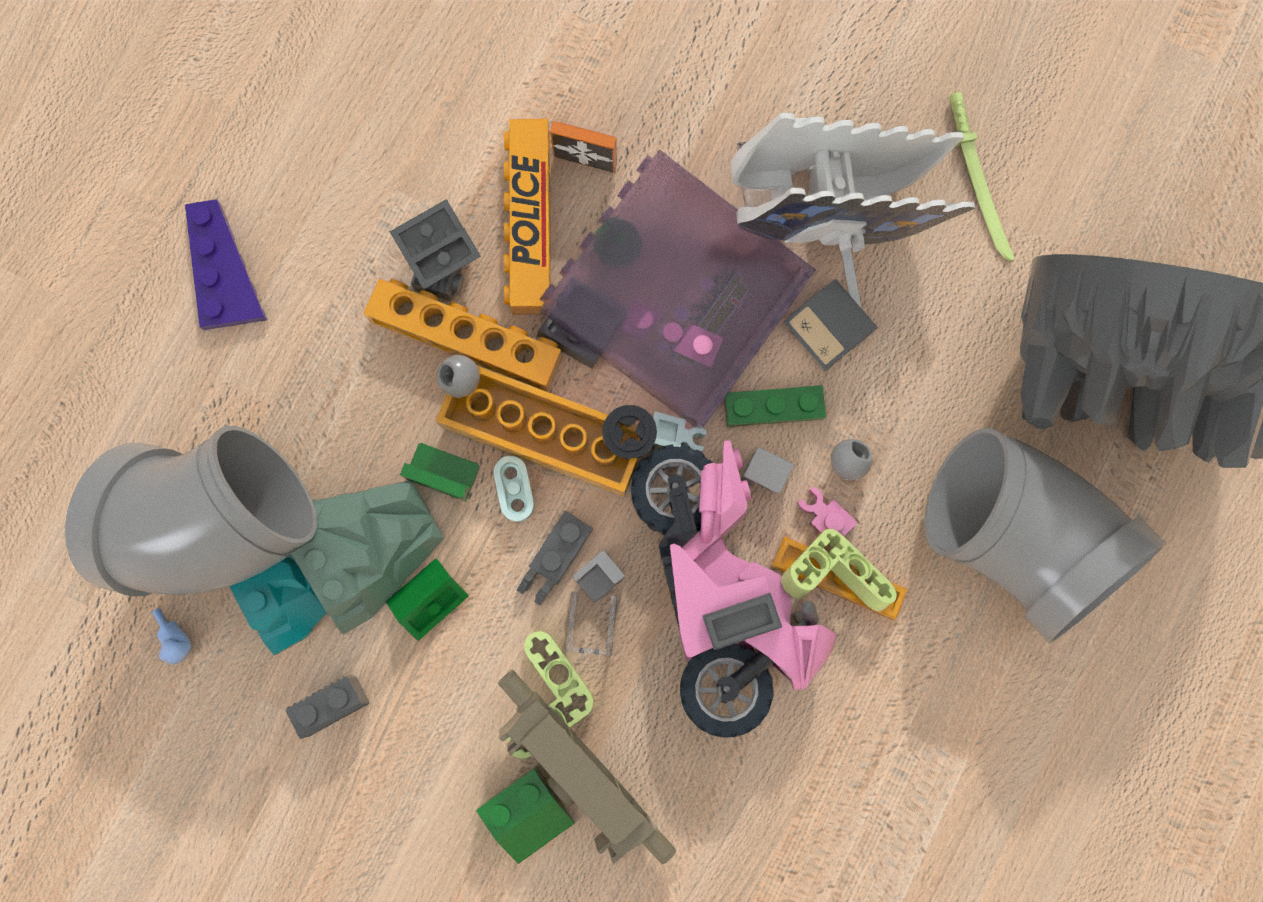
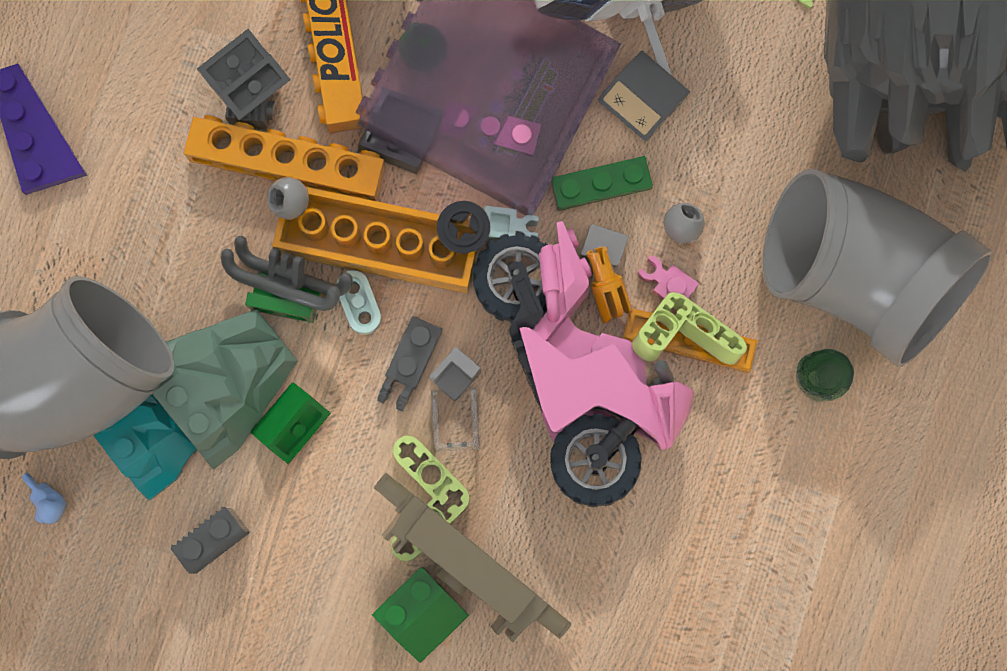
camera: 10 degrees left, 0 degrees up
(443, 453) = (284, 277): none -> dark grey piece
(742, 621) = (600, 388): dark grey tile -> none
(765, 513) = (607, 287): none -> light orange arm
(971, 636) = (824, 375): none -> clear green hair

